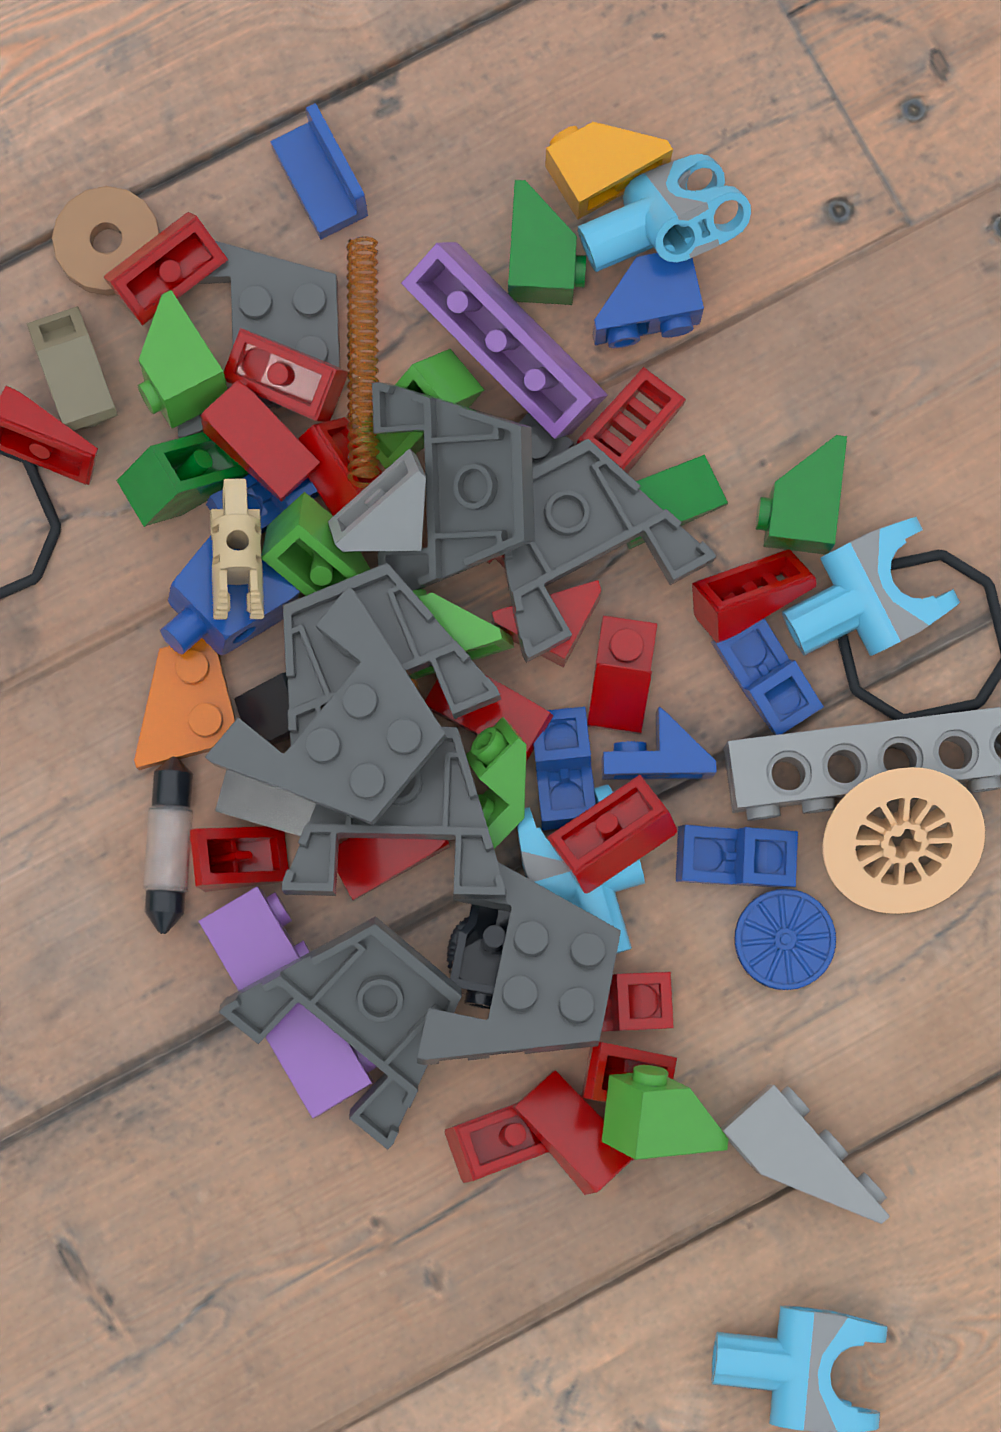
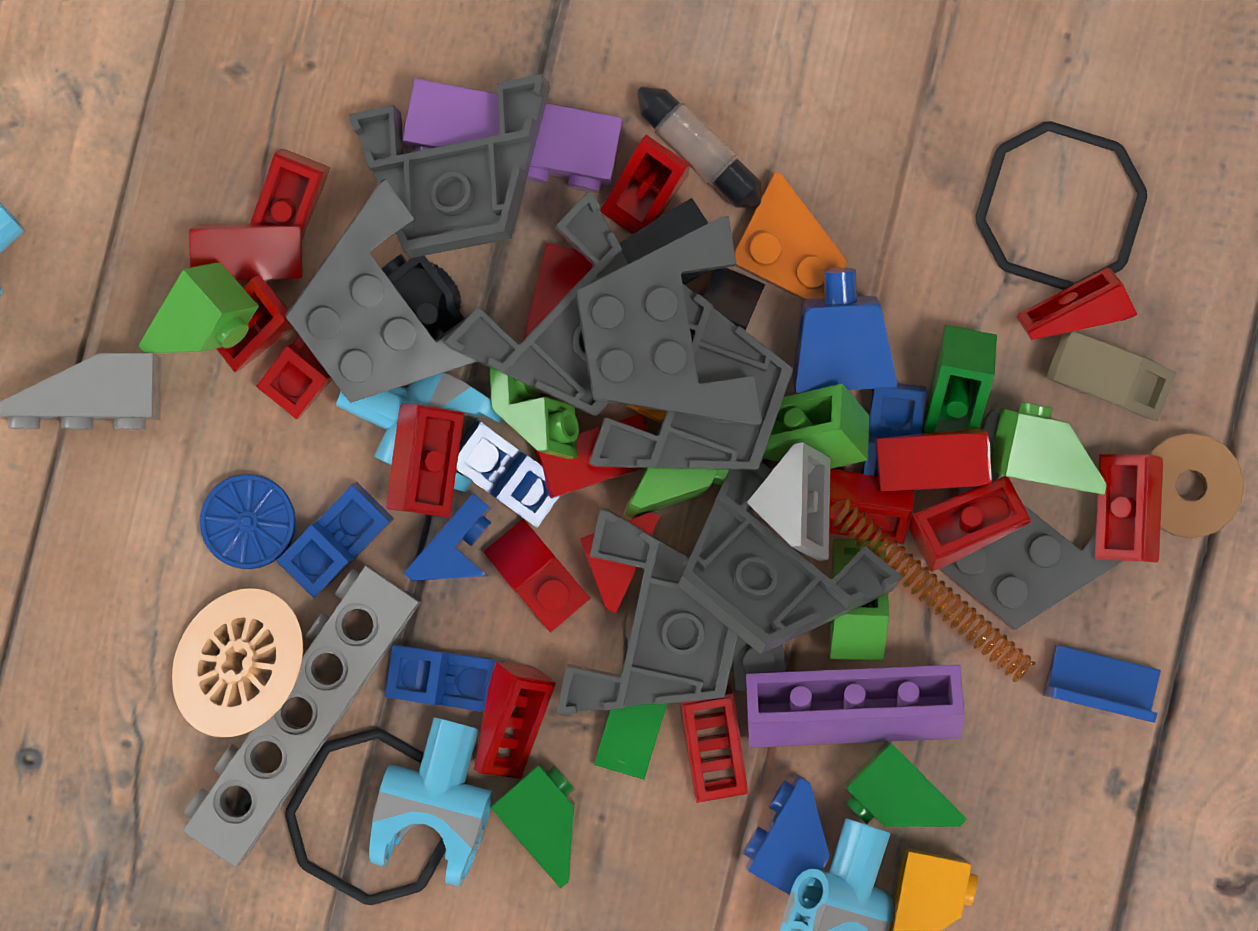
camera: 130 degrees right, 5 degrees up
(236, 529) = (877, 388): tan hinge -> none

